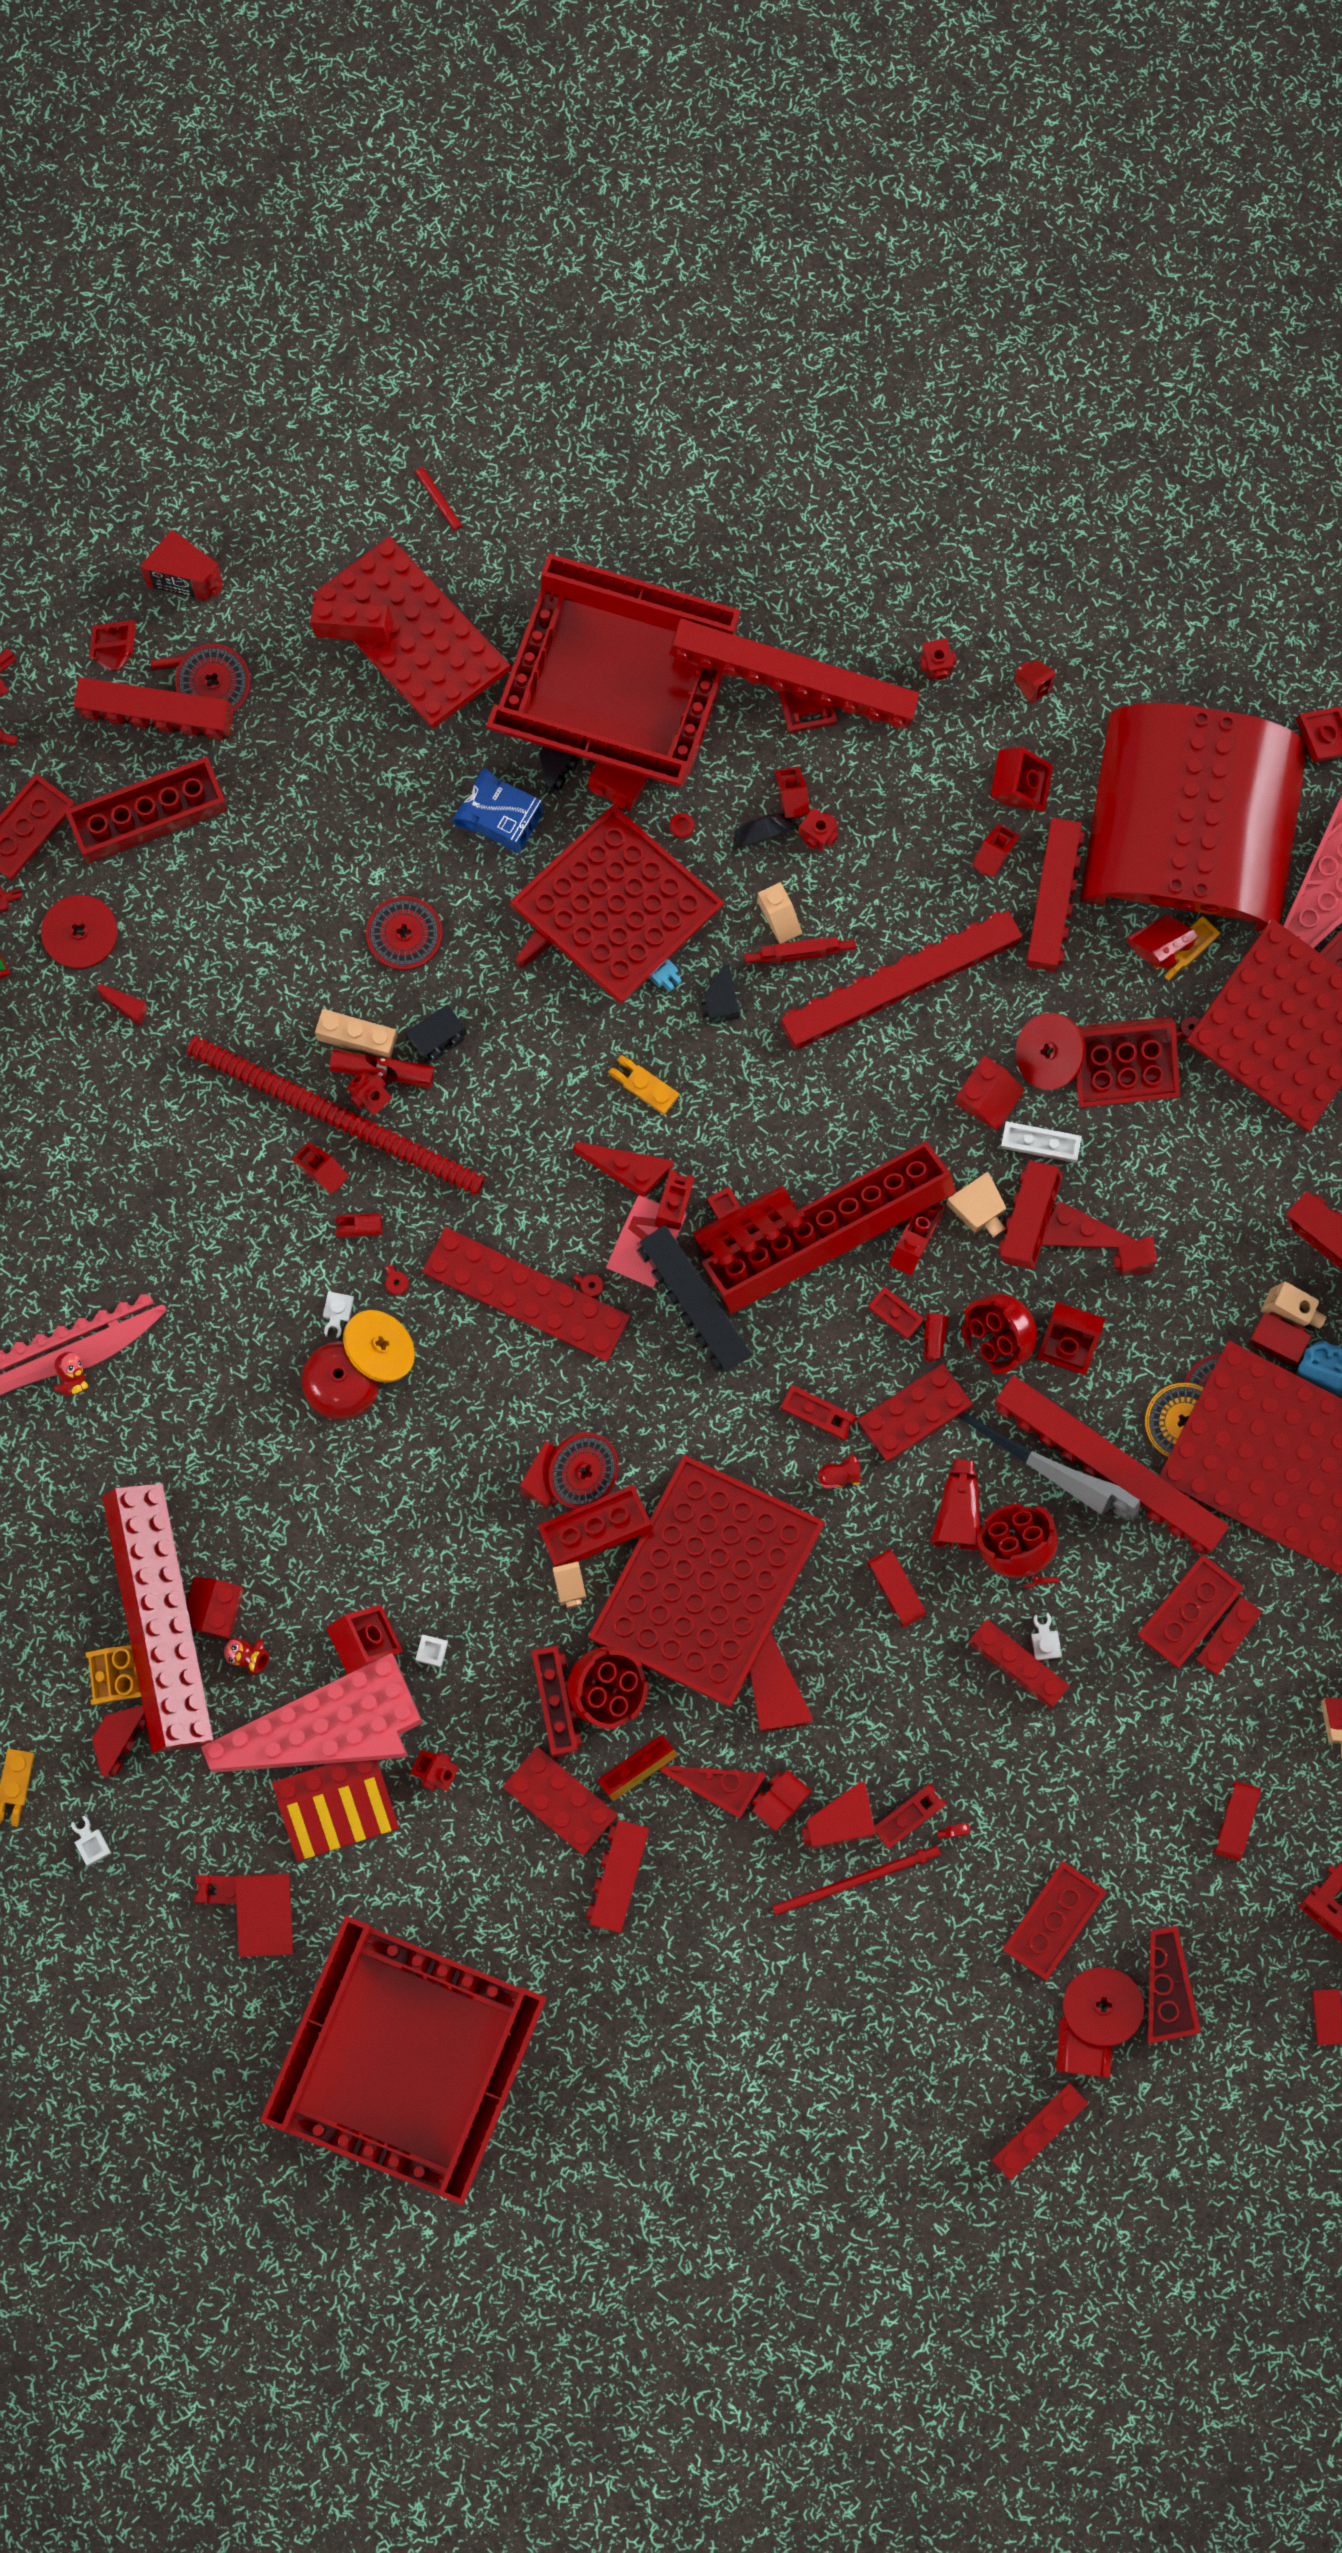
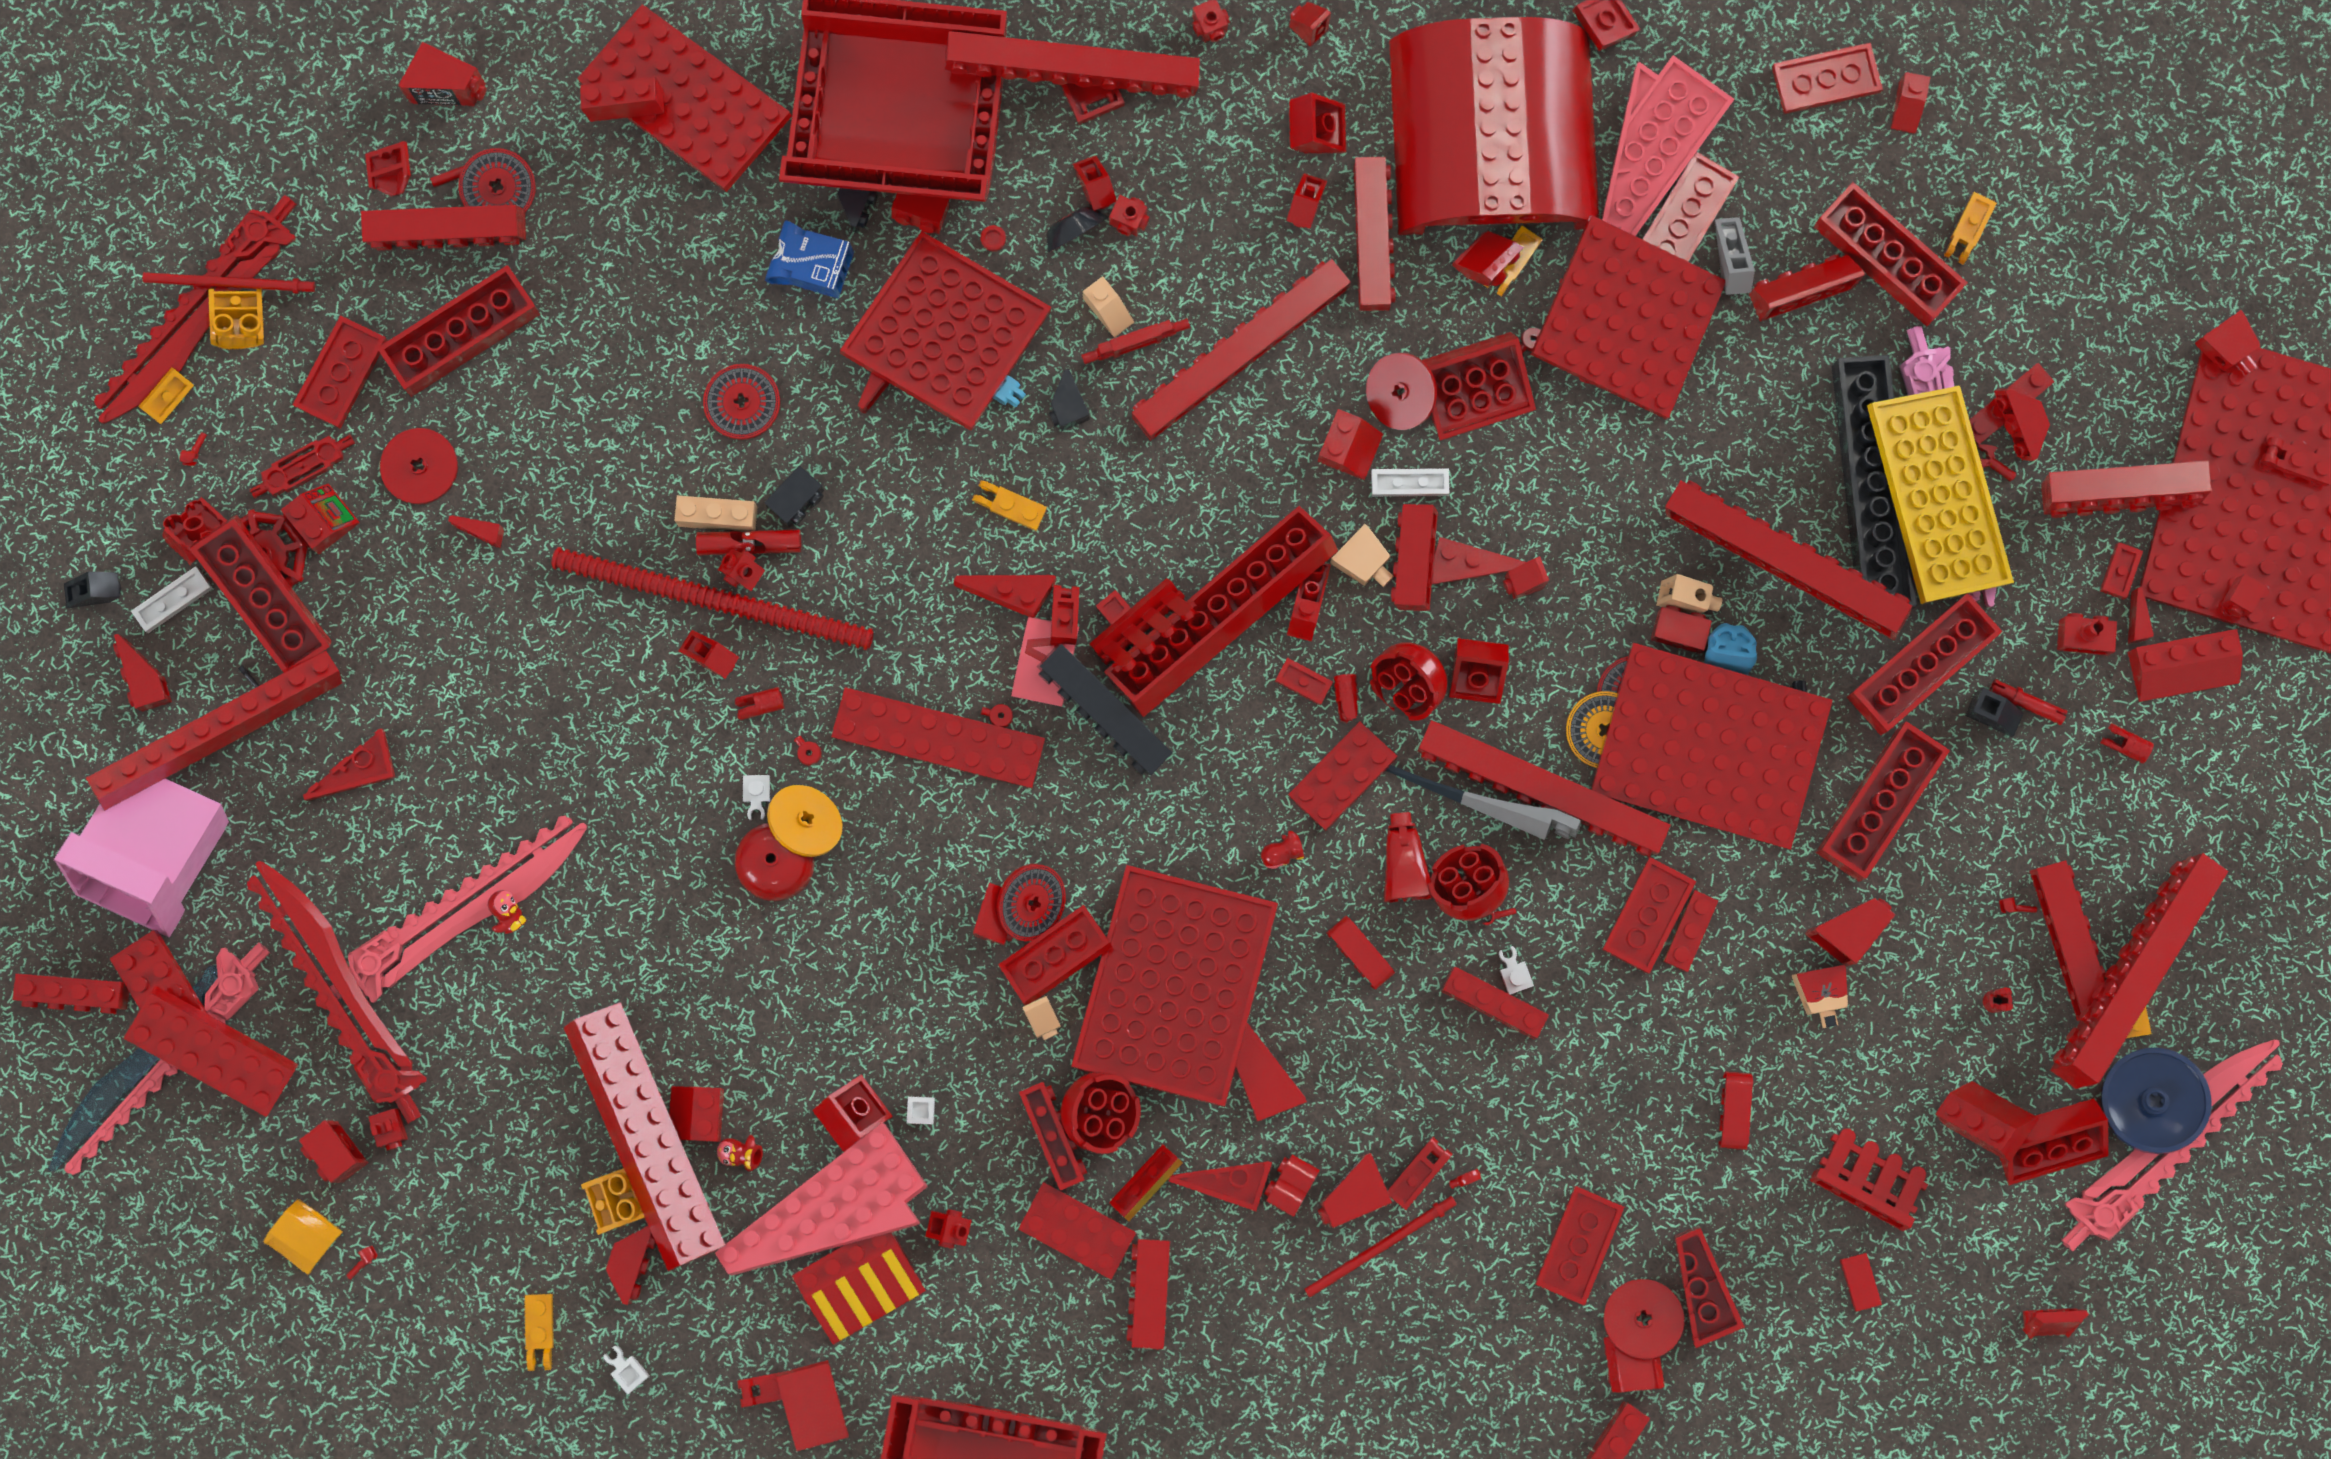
camera: 15 degrees left, 5 degrees up
(817, 1412) = (1247, 795): red plate -> none

